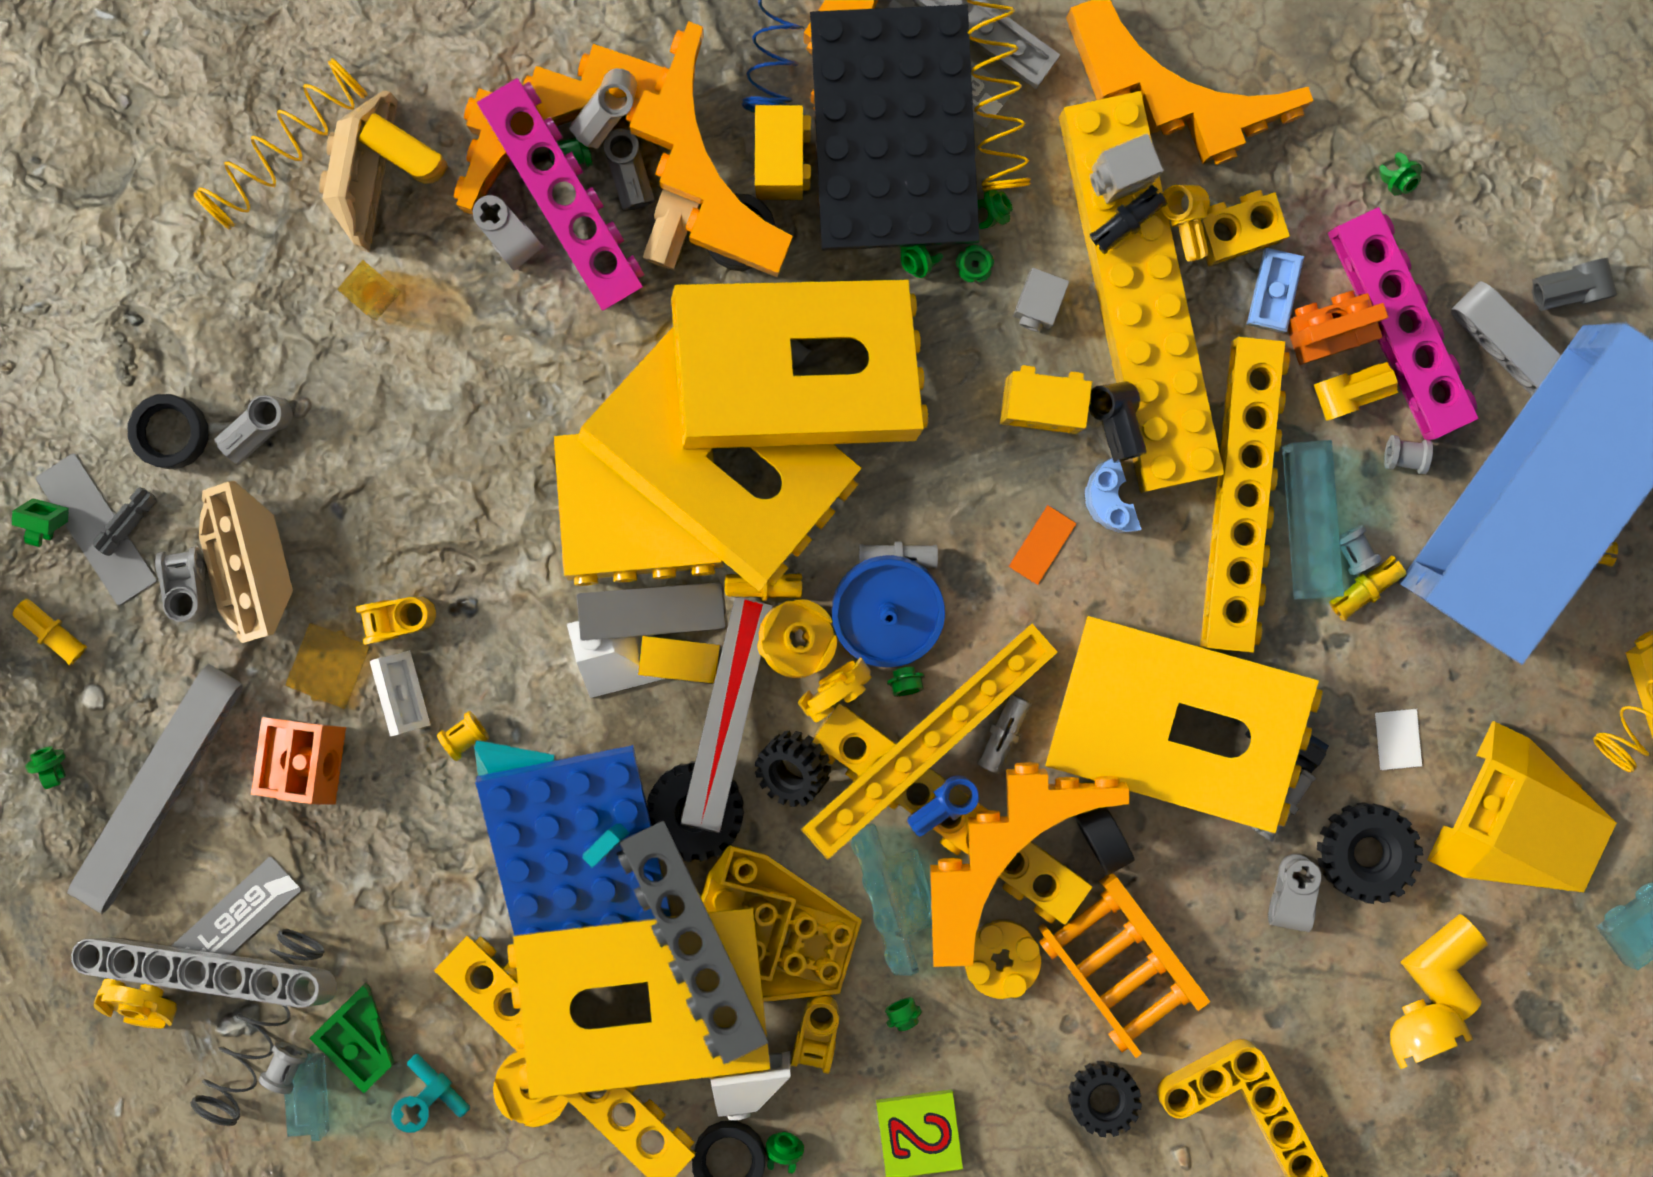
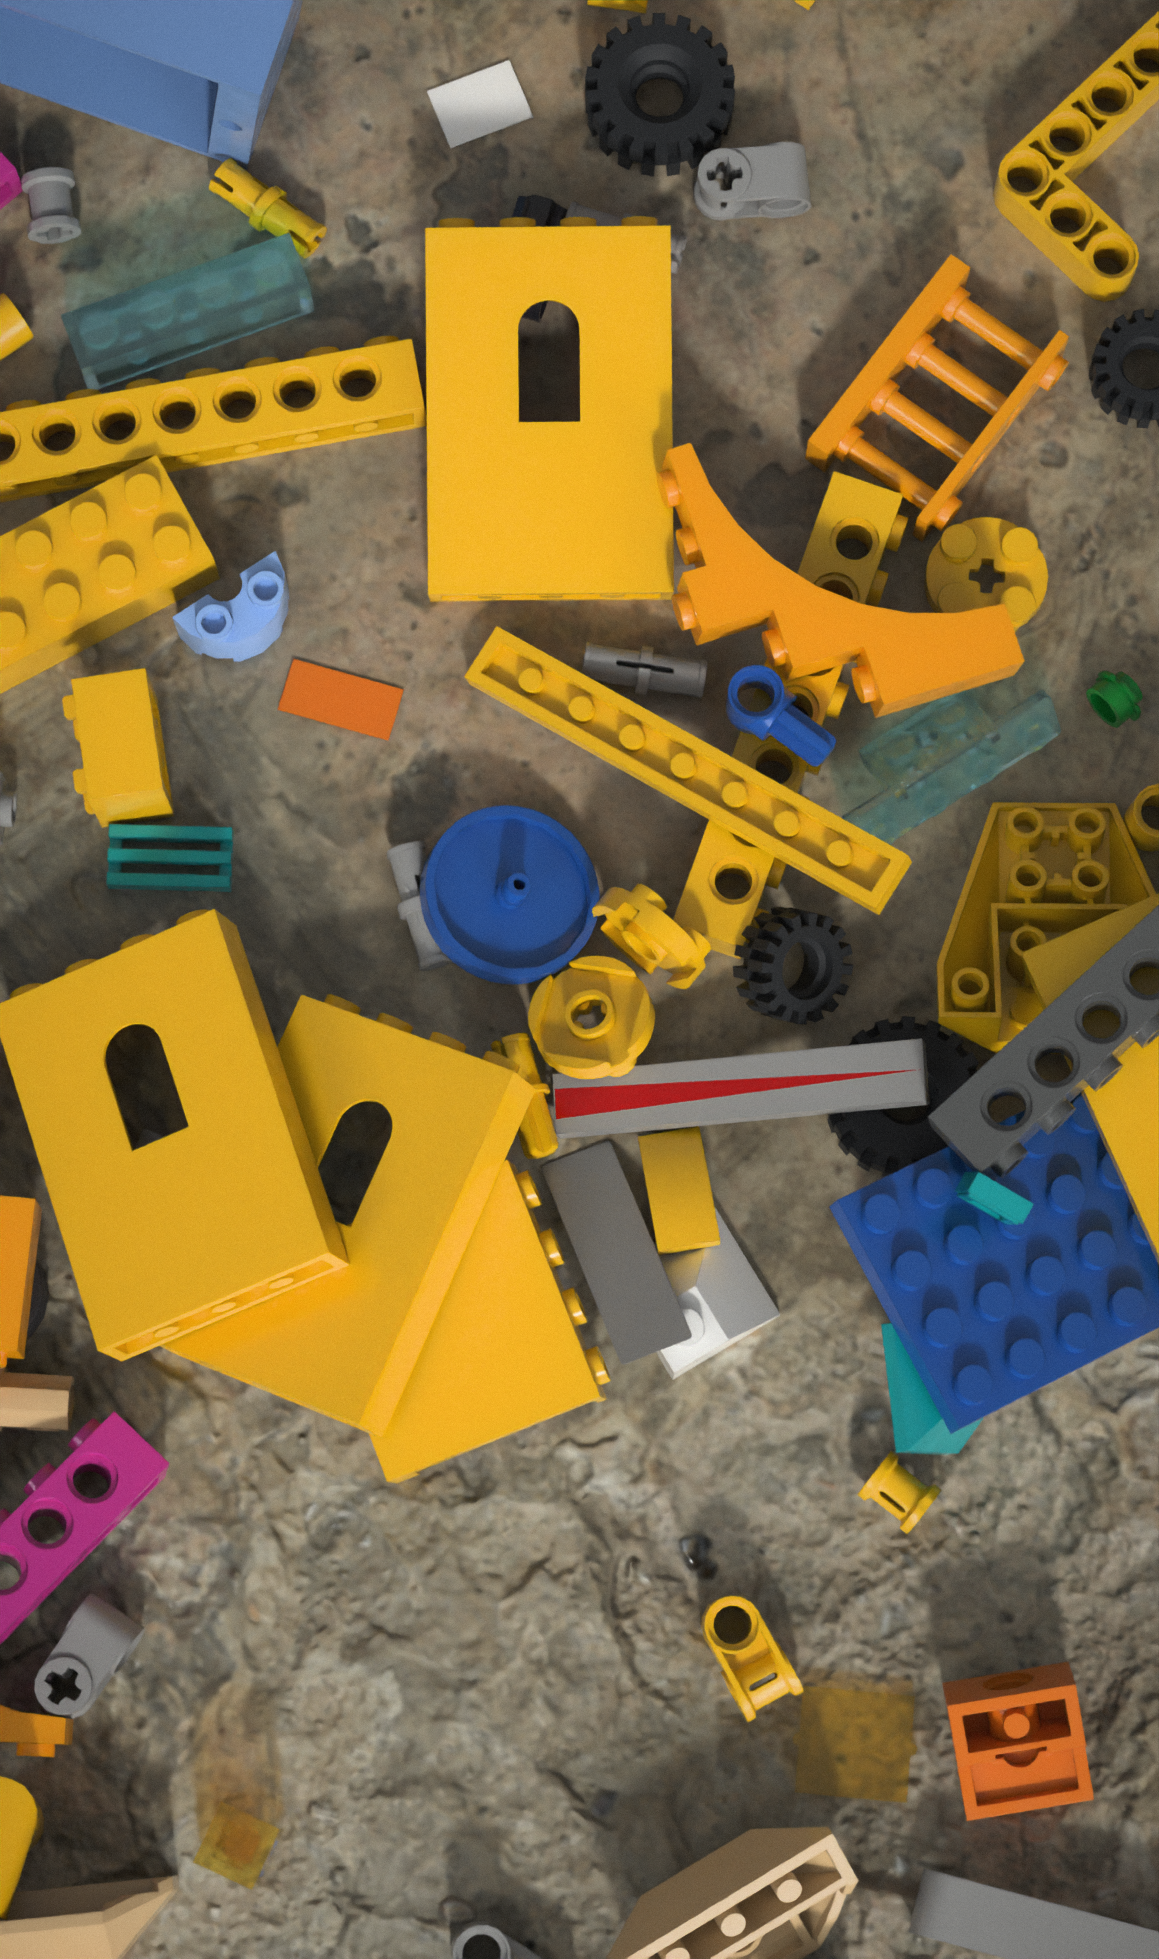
camera: 105 degrees left, 10 degrees down
(400, 693) = (862, 1610): white plate -> none
(906, 682) = (609, 838): green plate -> none
(982, 382) = (170, 834): none -> teal tile
(1105, 839) = (758, 472): black tyre -> none
(1117, 409) = (118, 625): black piece -> none
(1358, 550) = (215, 235): light grey bush -> none

